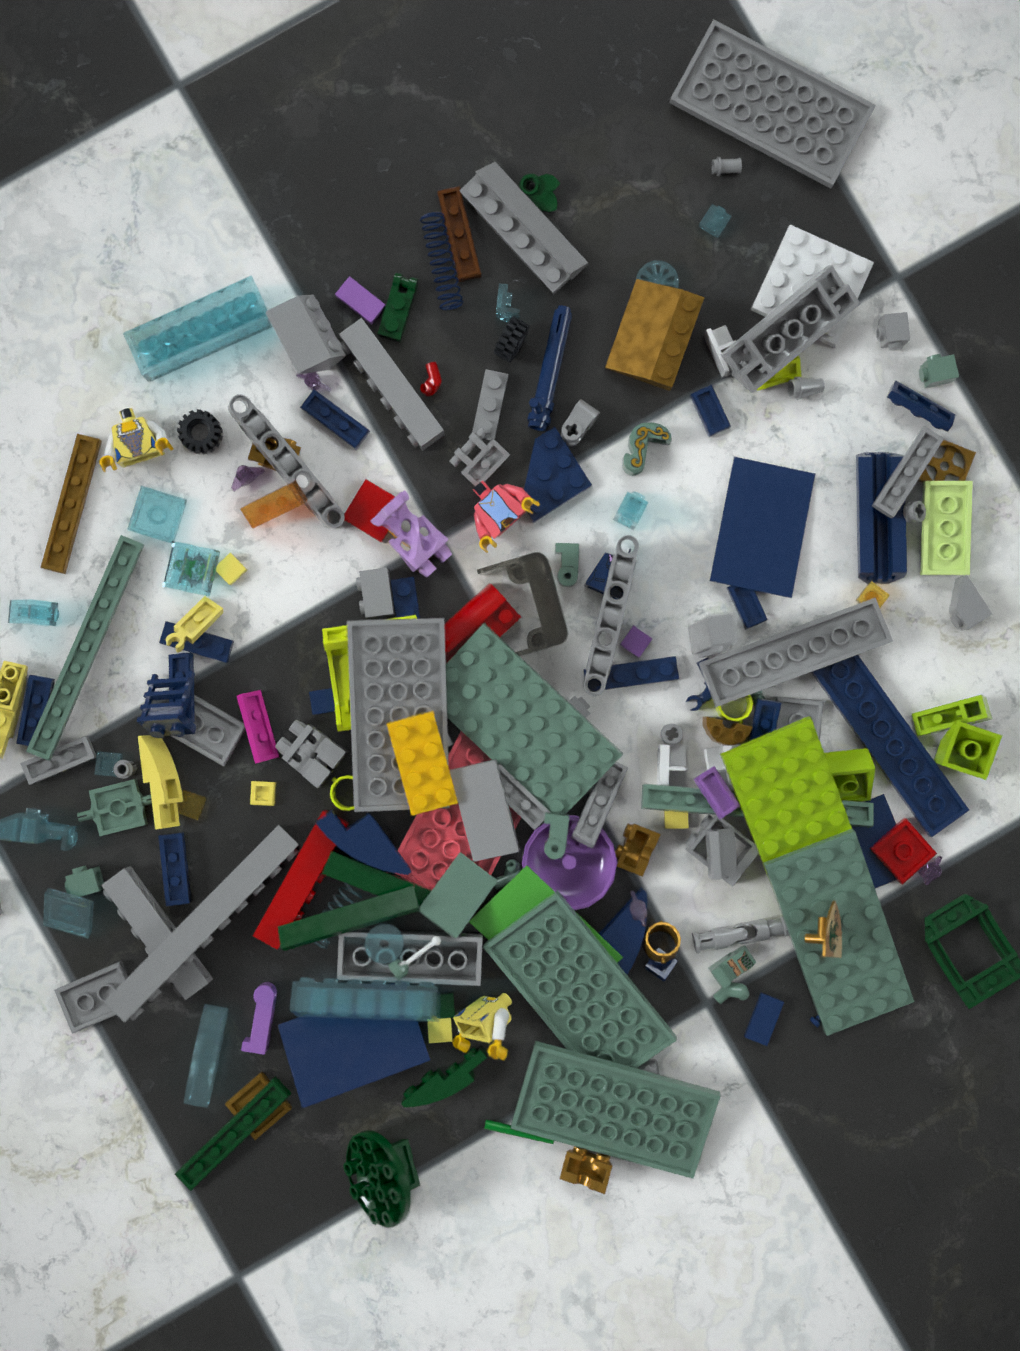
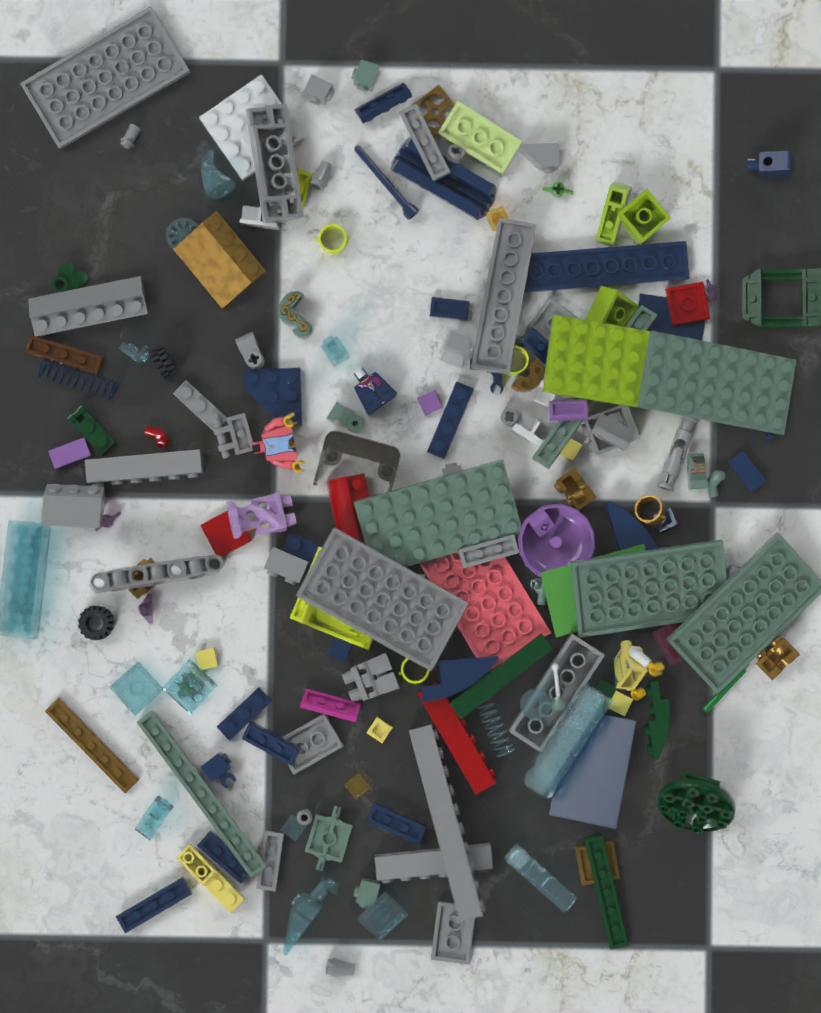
camera: 50 degrees left, 0 degrees up
(122, 647) = (217, 767): none -> dark blue brick
(133, 441) = (75, 673): torso -> none
(164, 781) = (325, 792): light yellow slope -> none
(167, 718) = (287, 764): dark blue plate -> none
(194, 623) = (231, 705): light yellow plate -> none
(265, 1000) = (524, 812): medium lavender leg -> none
(274, 504) = (180, 600): clear orange tile -> none
(335, 419) = (144, 521): dark blue tile -> none
(348, 918) = (503, 718): dark green tile -> none
(422, 762) = (425, 603): yellow plate -> none
(457, 895) = (532, 633): sand green tile -> none
(484, 810) = (484, 579): light grey tile -> none
(535, 1032) = (660, 636): none -> clear pink plate
(543, 403) = (221, 367): dark blue cylinder -> none
(556, 842) = (532, 538): sand green leg -> none
(599, 805) = (528, 497): light grey tile -> none
(611, 615) = (401, 410): light grey beam -> none
(638, 909) = (617, 513): clear purple piece -> none
(710, 410) = (297, 252): dark blue tile -> none
(715, 220) = (164, 168): clear light blue tile -> none
(732, 280) = (215, 182): none -> clear light blue hat
(757, 428) = (330, 227): none -> neon yellow piece
(762, 527) = (401, 265): dark blue piece -> none
(825, 499) = (408, 209): none -> dark blue piece
(828, 933) = (711, 391): shield -> none
(940, 643) = (557, 190): none -> bright green piece

